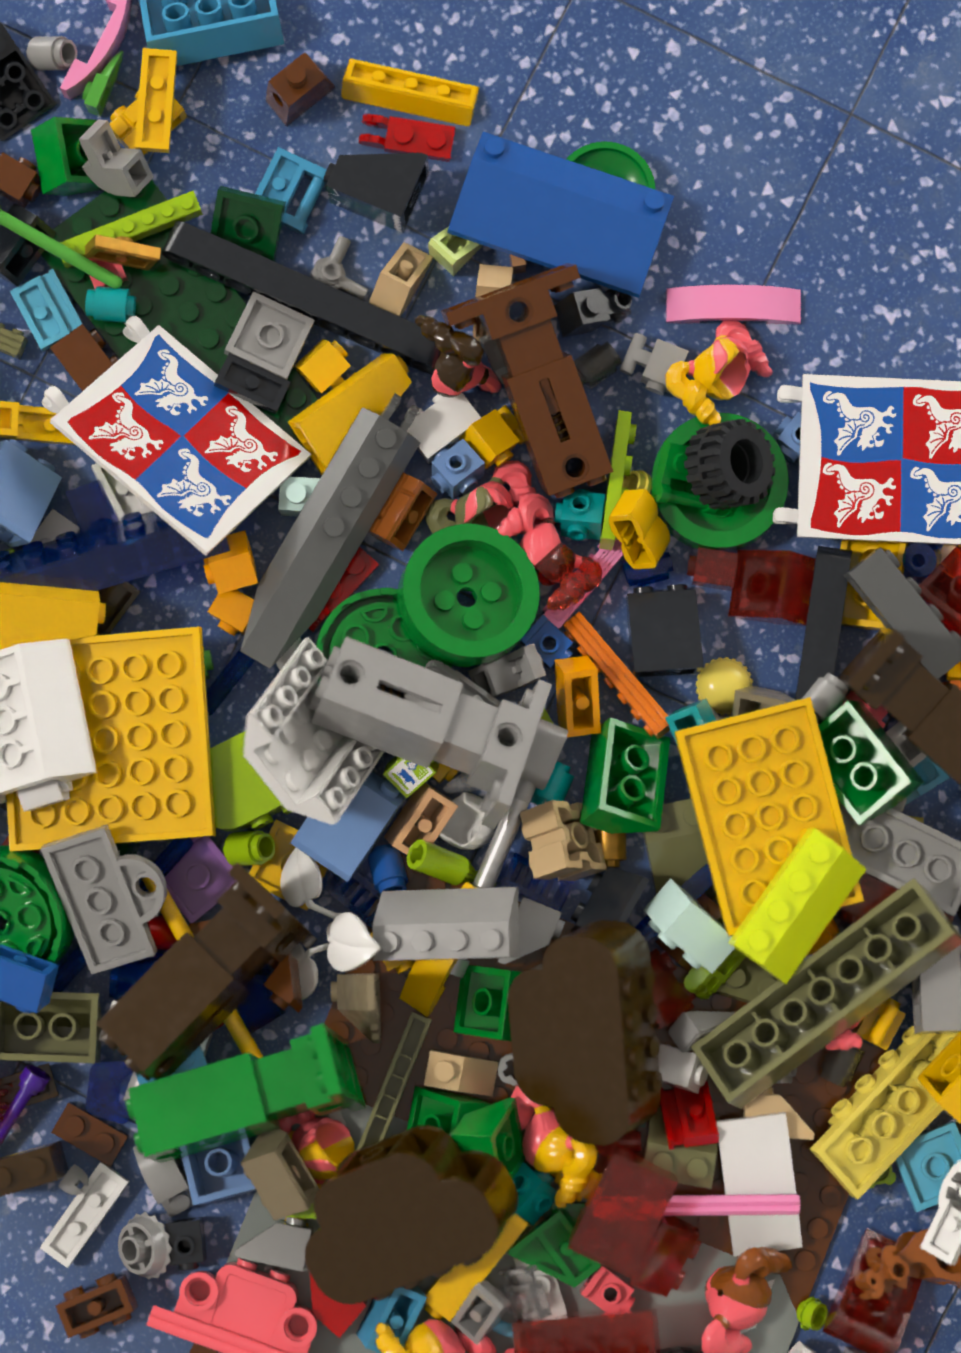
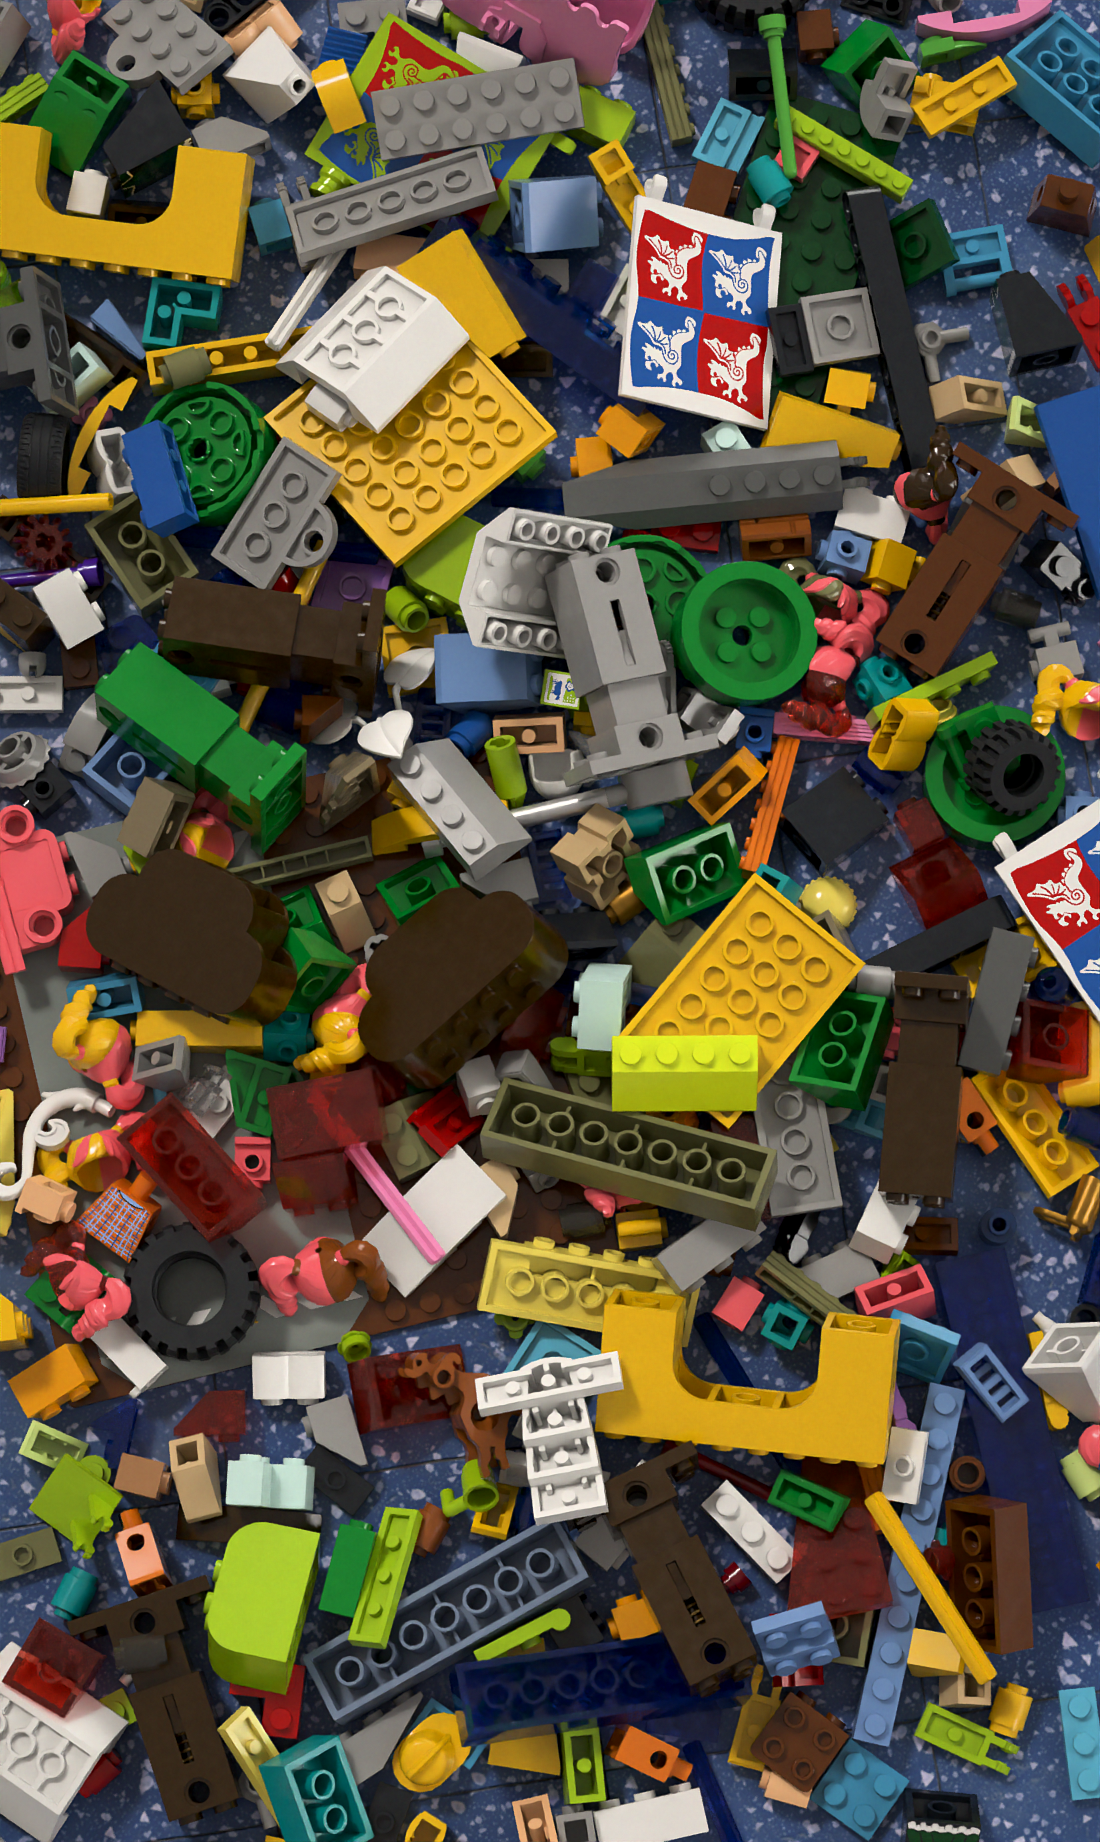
camera: 50 degrees right, 5 degrees down
(51, 1120) = (68, 607): none -> white brick
(122, 251) = (819, 159): pearl gold plate -> none

